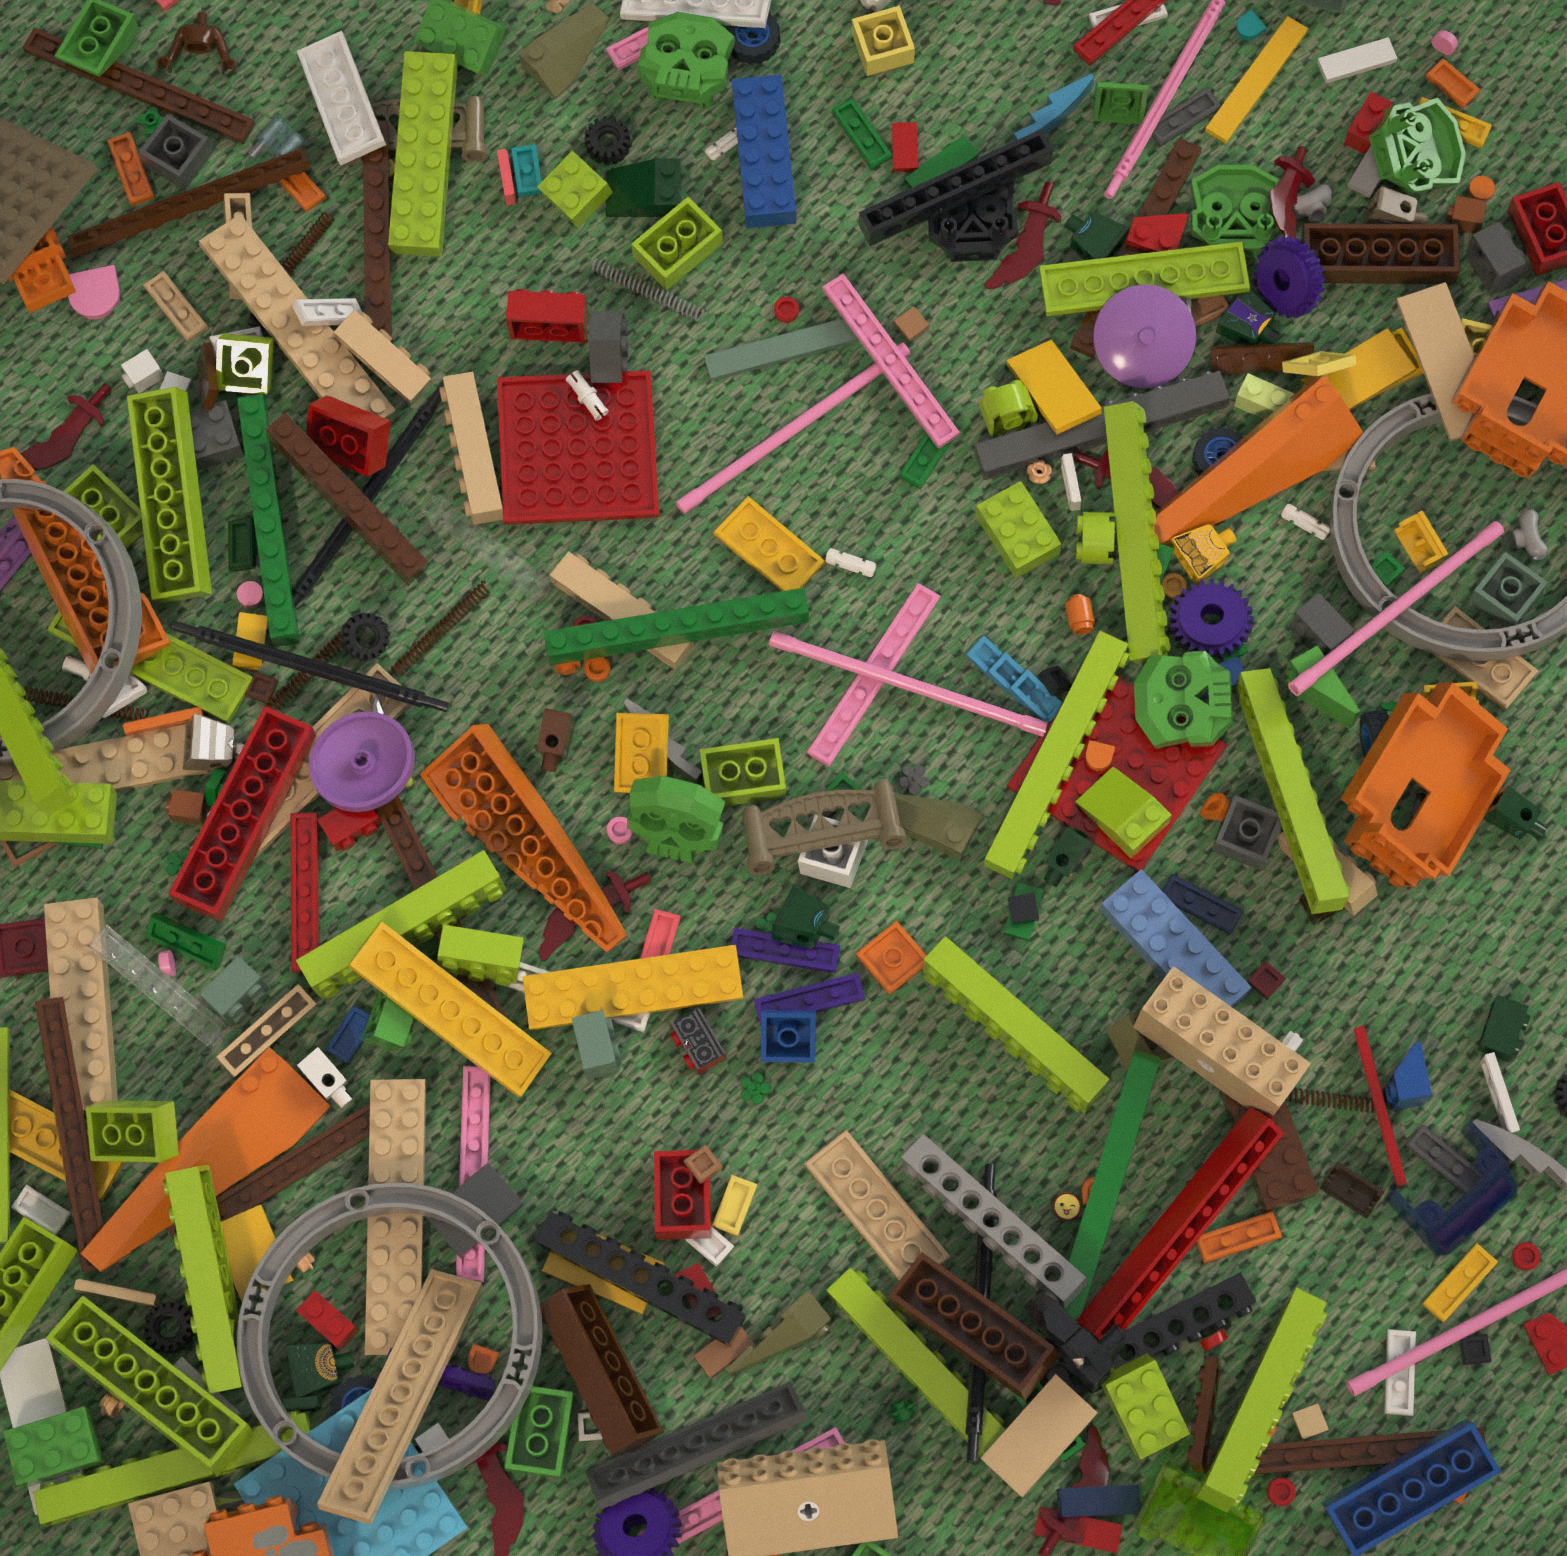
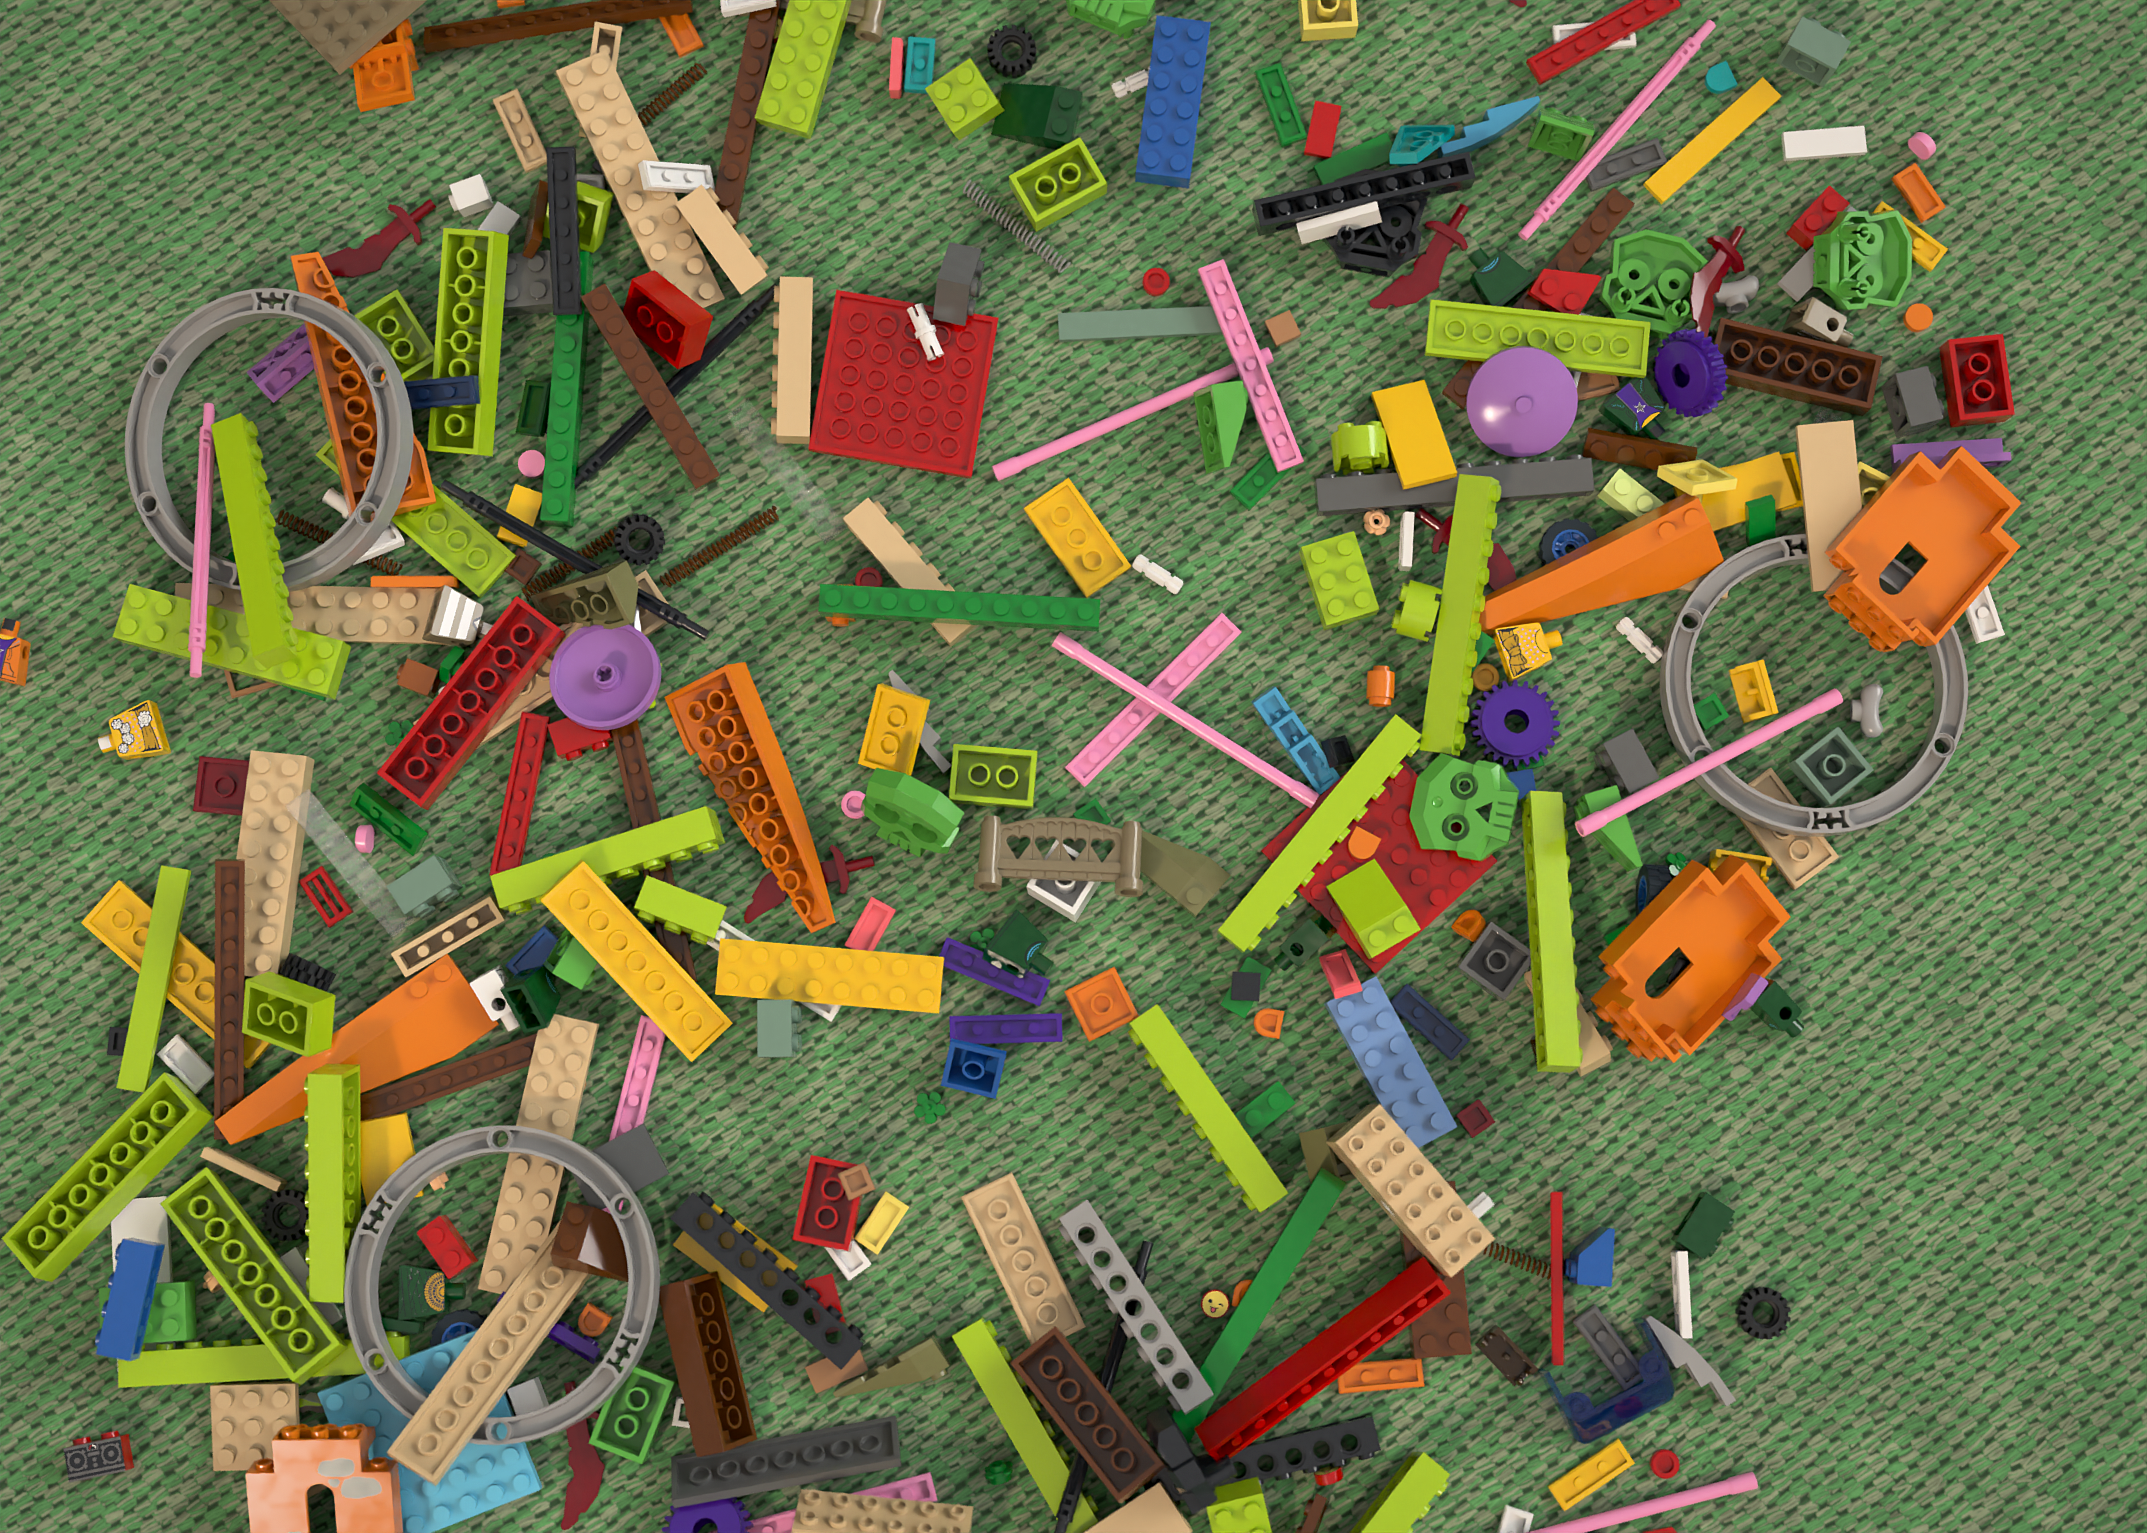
camera: 10 degrees right, 10 degrees up
(36, 1429) = (129, 1299): none -> blue brick
(96, 292) = (440, 94): bright pink tile -> none
(138, 1091) = (307, 972): none -> black tyre
(157, 1041) = (338, 915): none -> red tile
(158, 541) = (443, 392): none -> dark blue tile
(237, 377) = (564, 231): none -> black tile
(338, 695) = (597, 598): none -> olive wedge
(358, 1068) = (532, 998): none -> dark green torso
(466, 1281) = (590, 1243): none -> reddish brown slope
(547, 316) = (903, 234): red brick -> none
(555, 726) = (817, 685): reddish brown torso -> none
(597, 669) = (870, 629): orange tile -> none
(698, 1041) = (882, 1047): brick -> none
(874, 411) = (1220, 418): none -> bright green slope
(914, 779) = (1167, 820): dark grey plant -> none
(931, 220) = (1329, 224): none -> white tile
(993, 135) = (1417, 142): none -> teal wing
(1053, 939) = (1269, 1022): none -> orange tile
(1070, 1012) = (1264, 1109): none -> green brick
(1108, 876) = (1340, 974): none -> coral tile
(1386, 389) = (1760, 520): none -> green tile
(1467, 214) = (1894, 343): dark orange brick -> none
(1486, 808) = (1745, 996): none -> medium lavender tile

